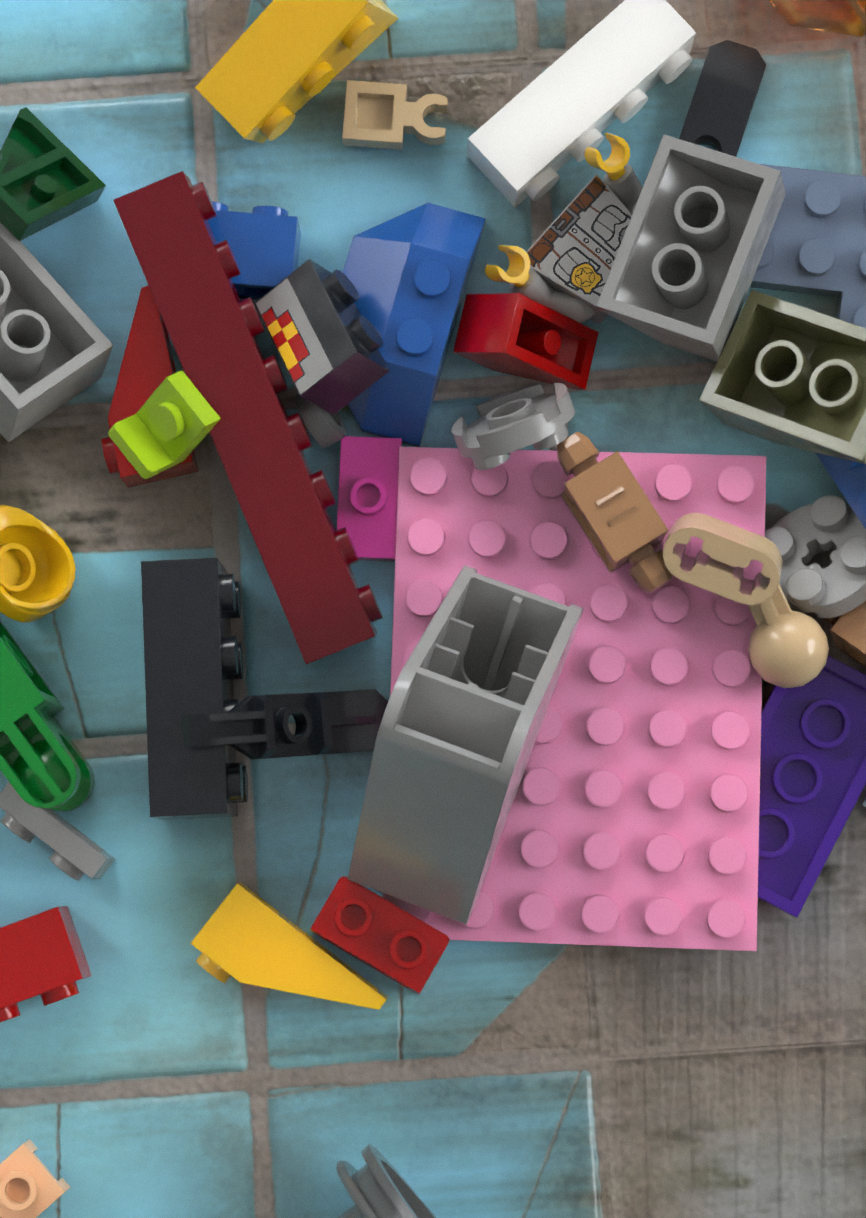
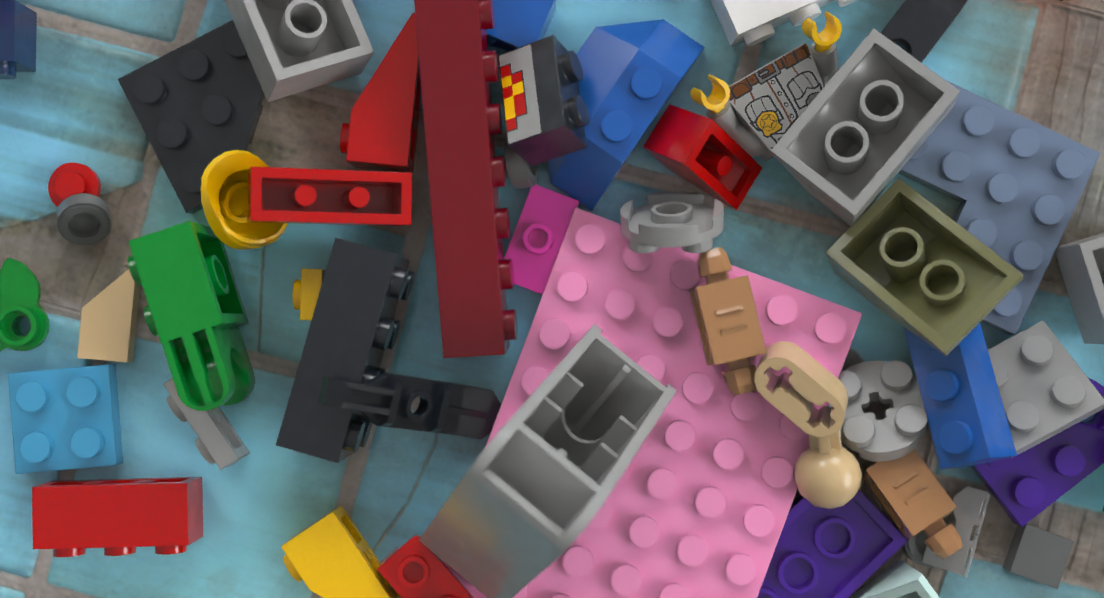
camera: 20 degrees right, 5 degrees up
(115, 524) = (329, 196): none -> red brick
(127, 644) = (307, 291): none -> yellow plate
(165, 427) = (391, 133): lime bracket -> none

